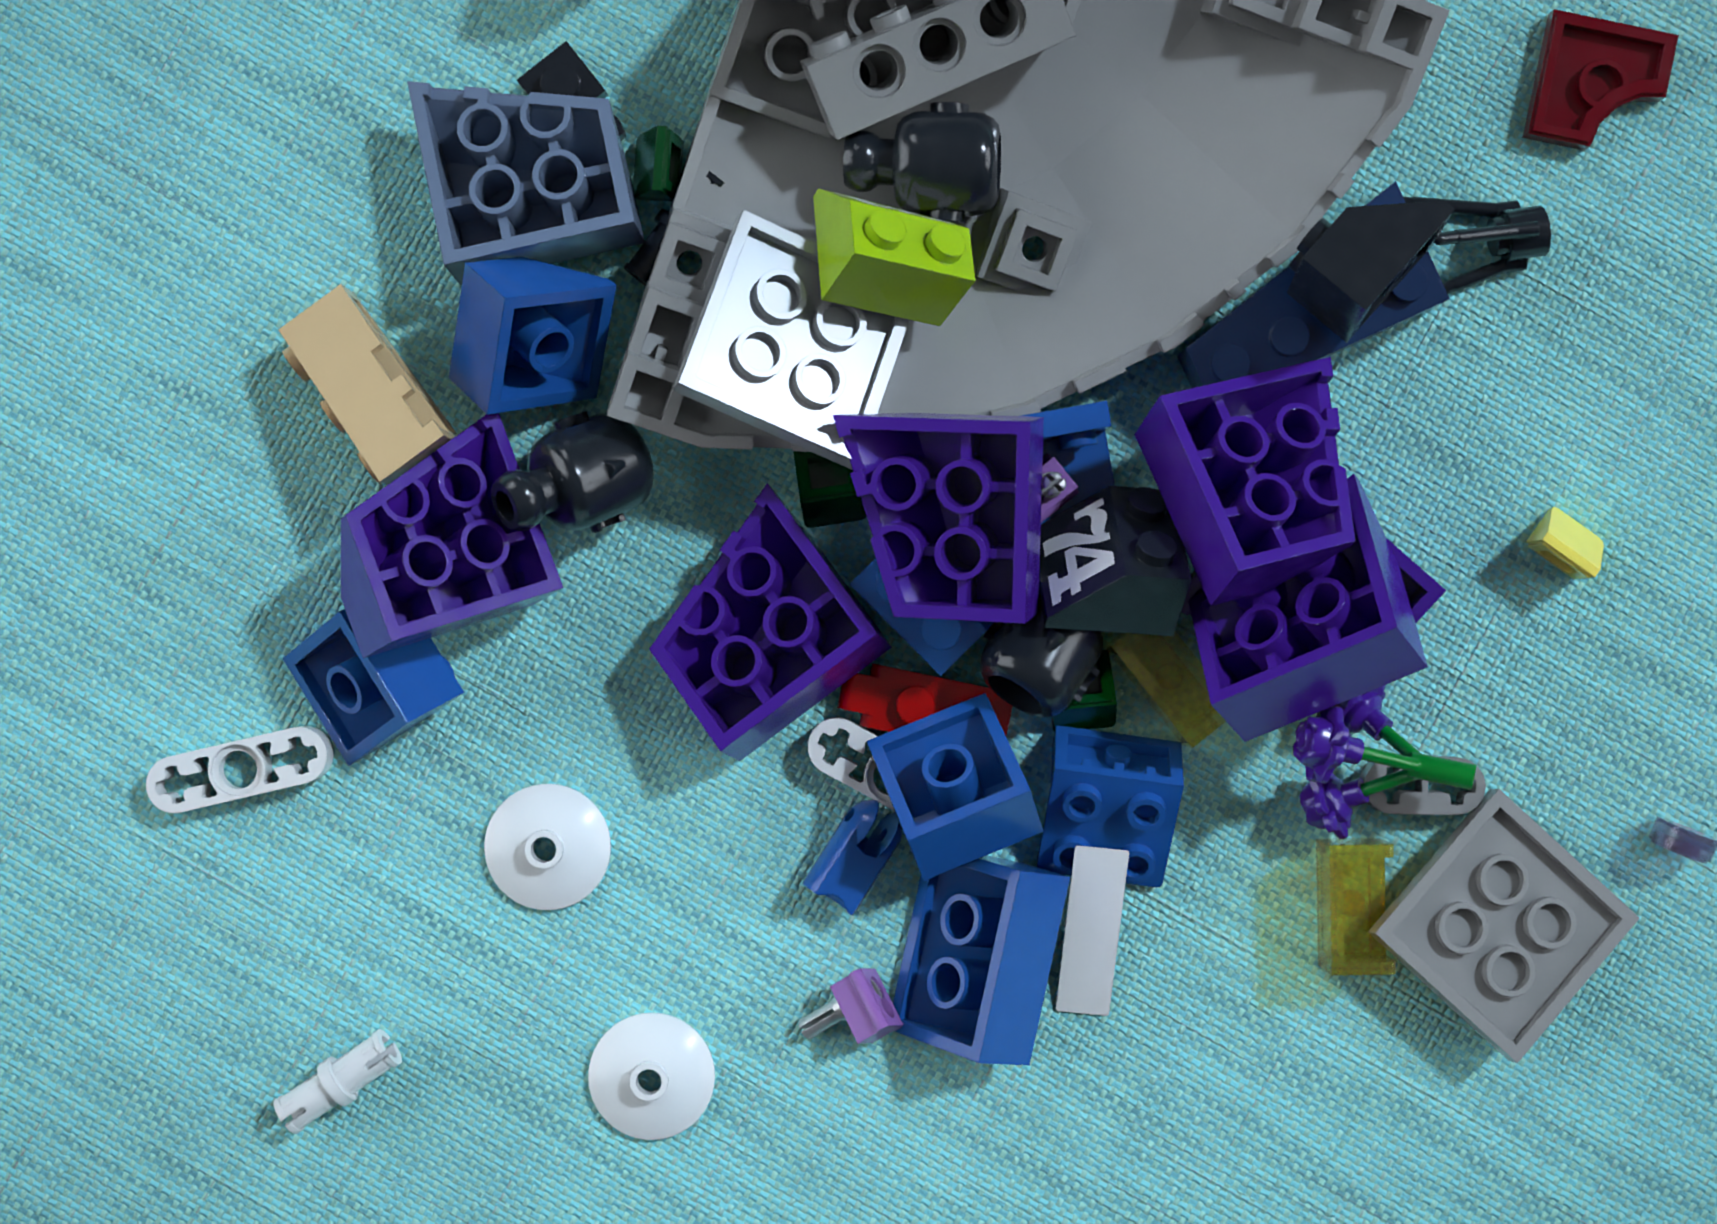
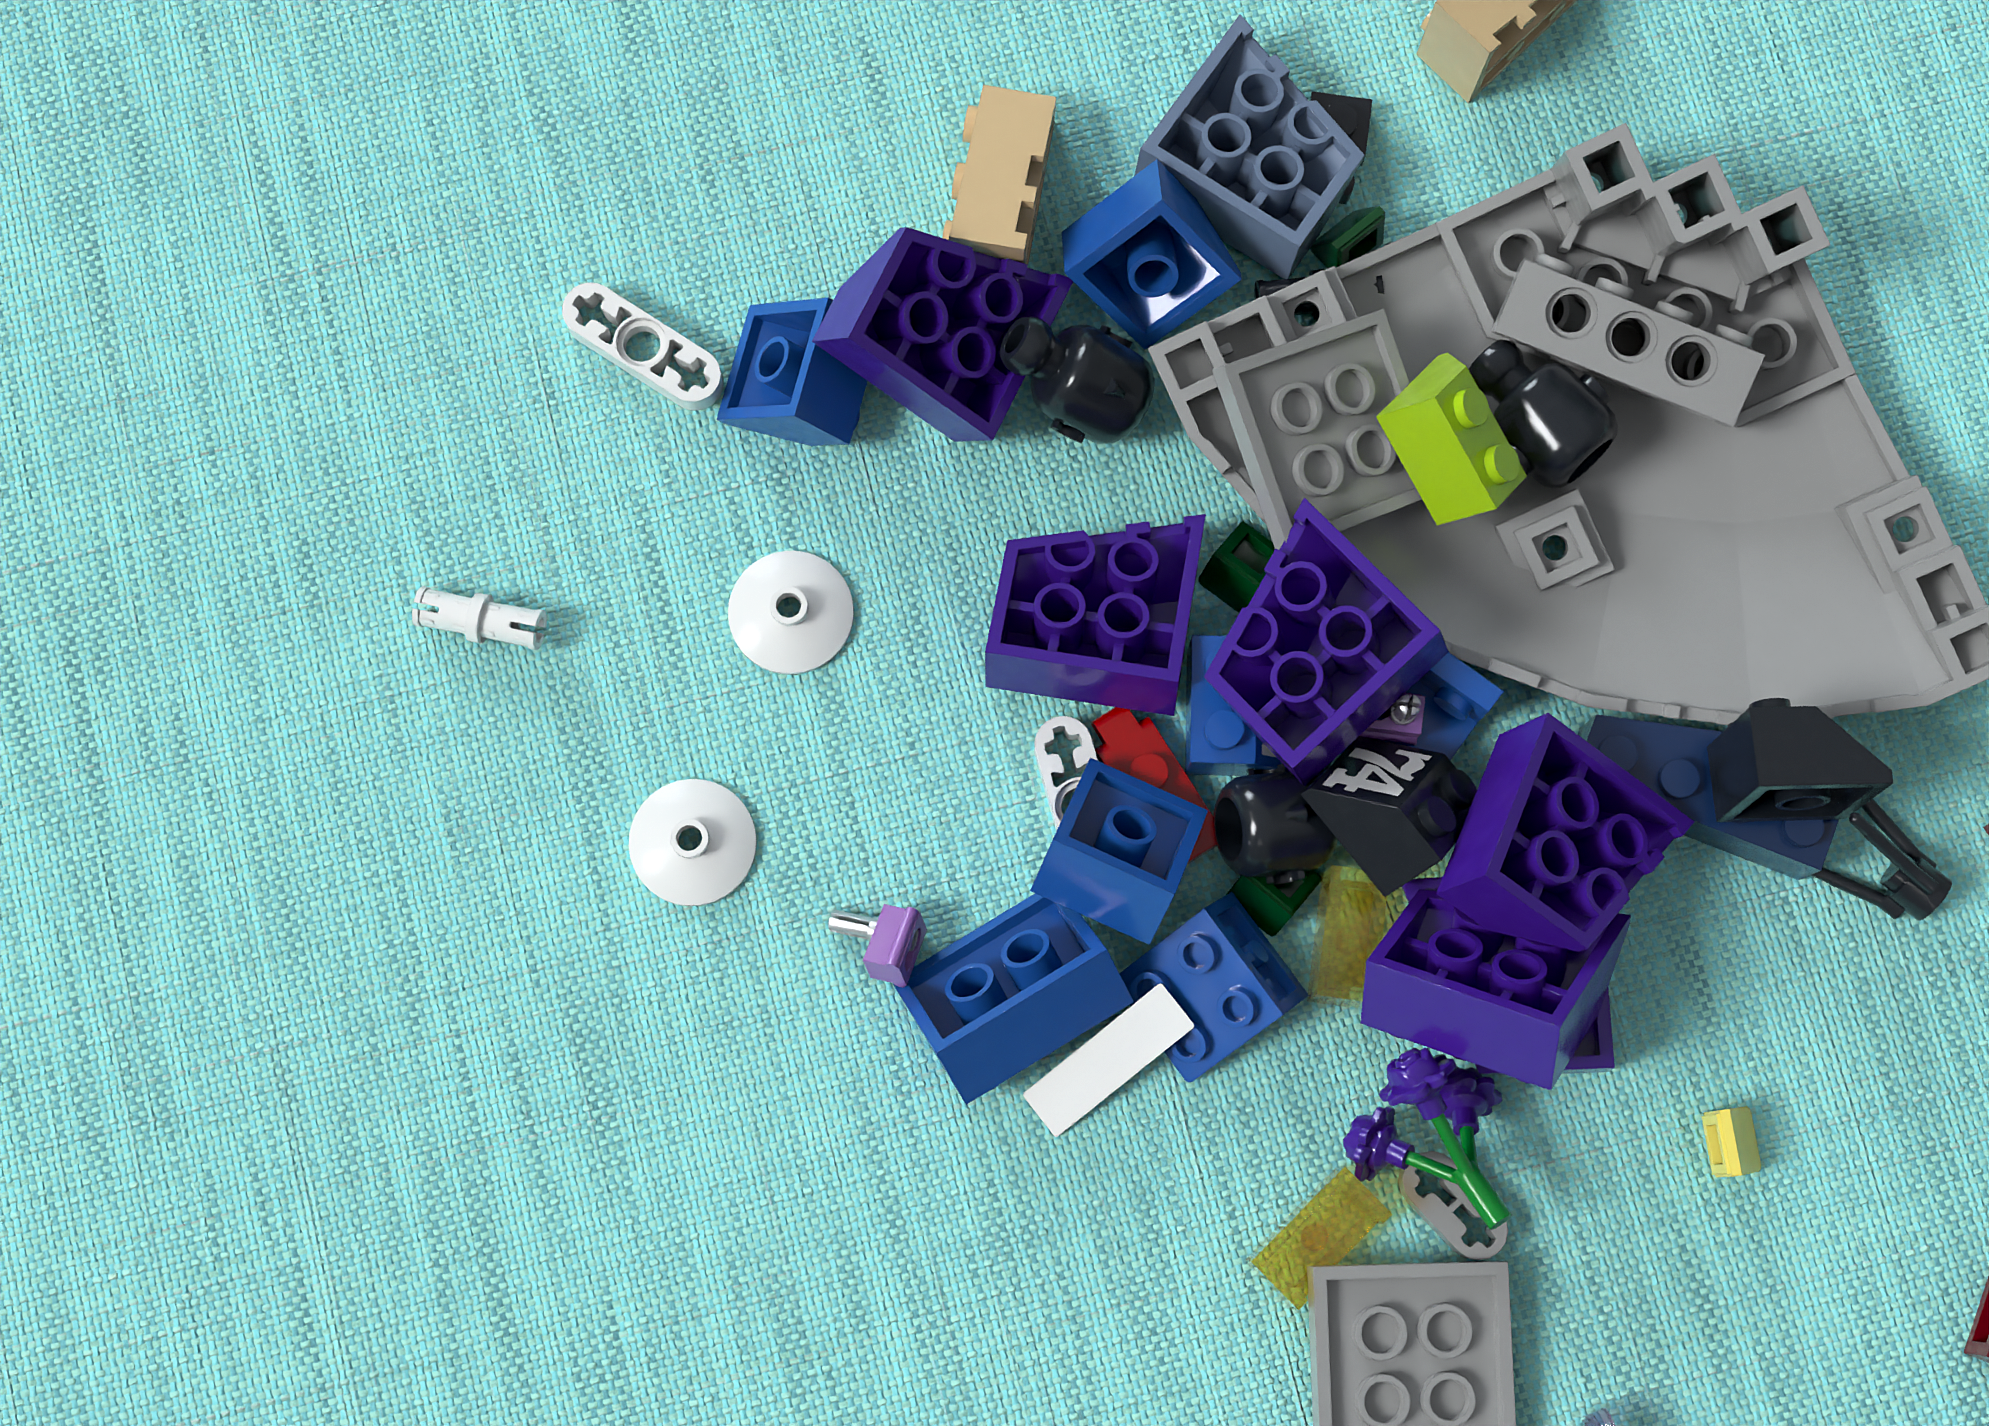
camera: 45 degrees right, 10 degrees down
(851, 860) = (988, 833): blue piece -> none

